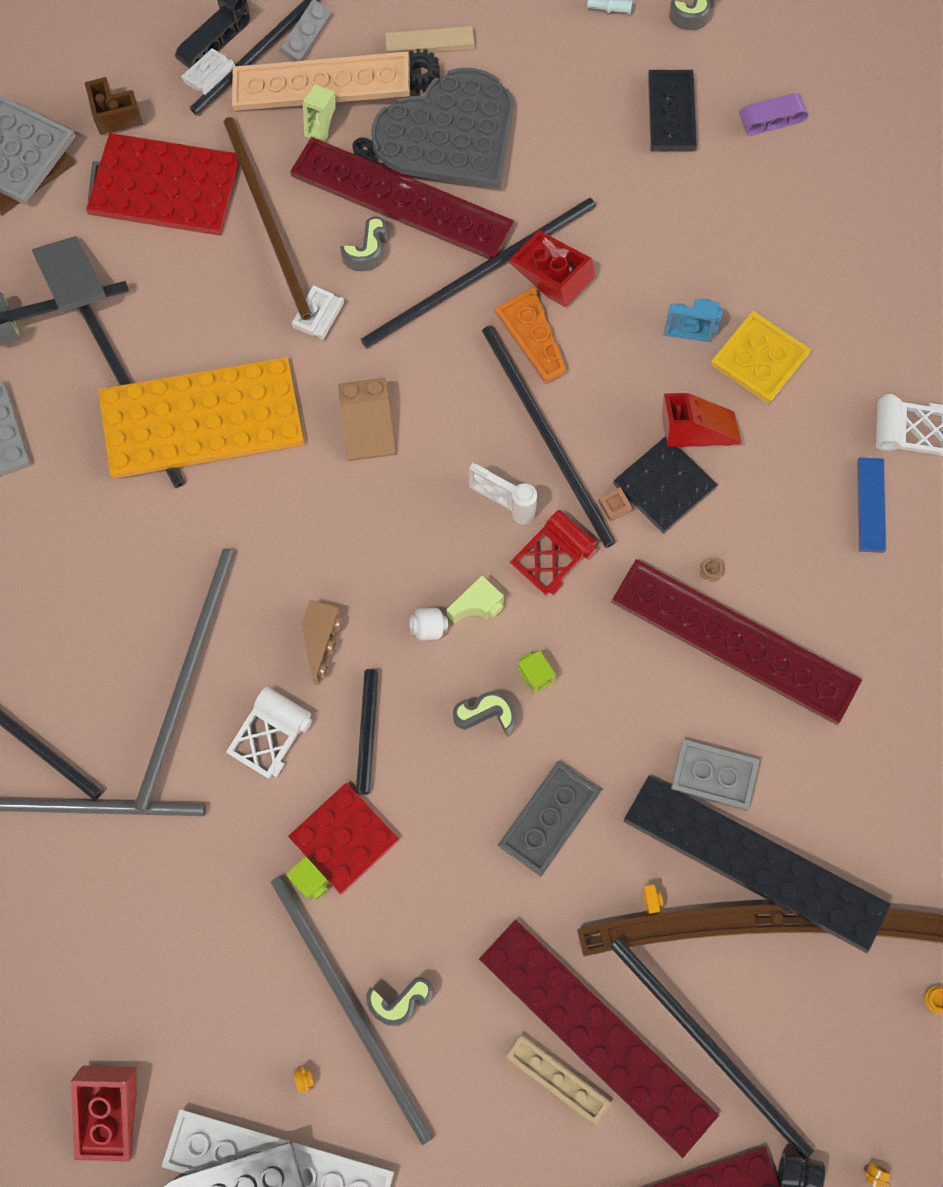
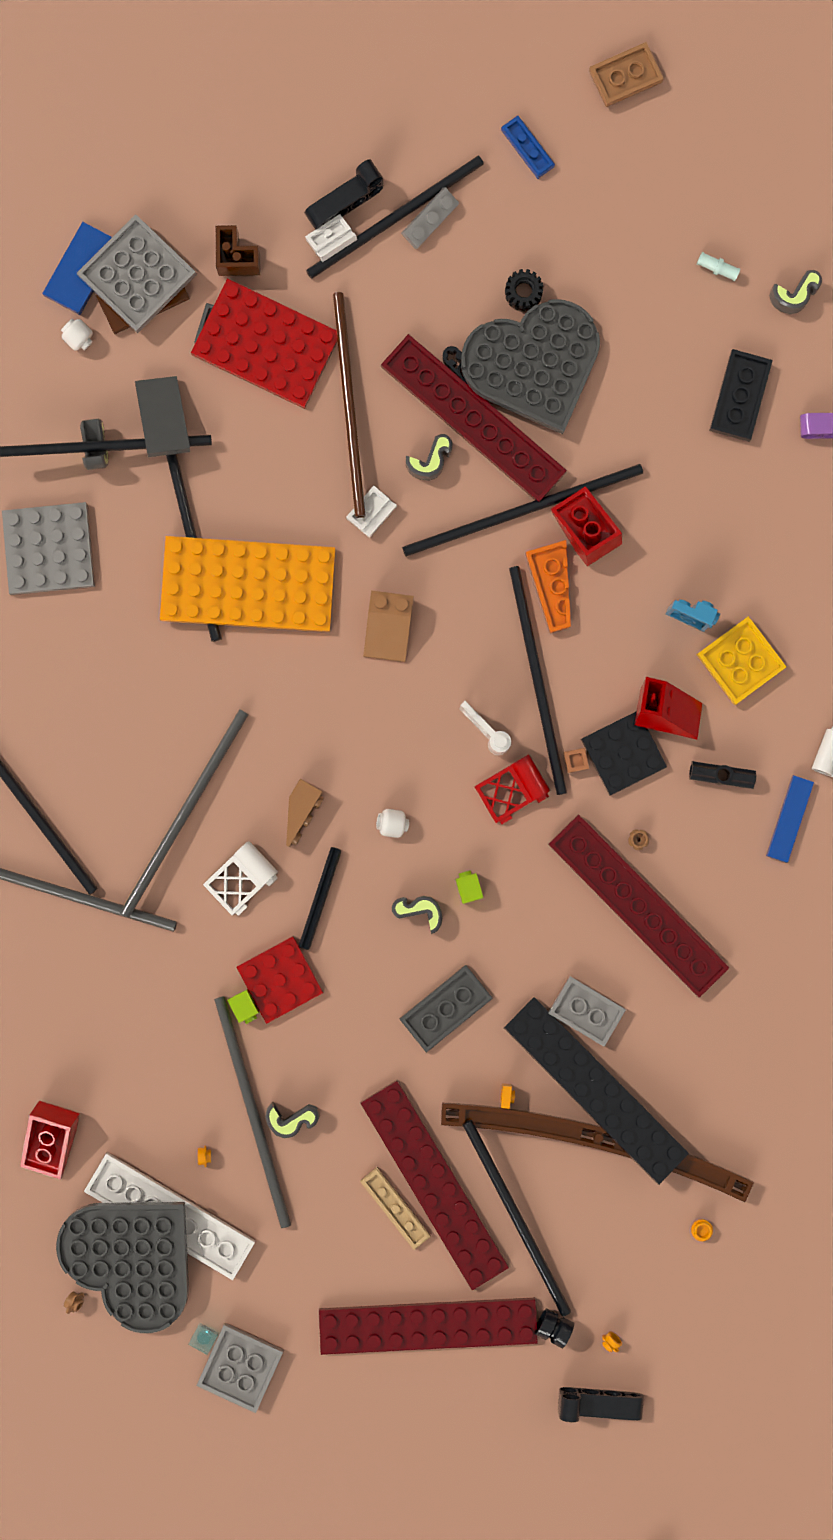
camera: 10 degrees right, 15 degrees up
(317, 112) = (420, 314): yellowish green arch -> none
(350, 78) = (431, 279): light nougat plate -> none
(432, 40) = (542, 259): tan tile -> none
(478, 600) = (440, 813): yellowish green arch -> none
(795, 474) = (735, 776): none -> black piece

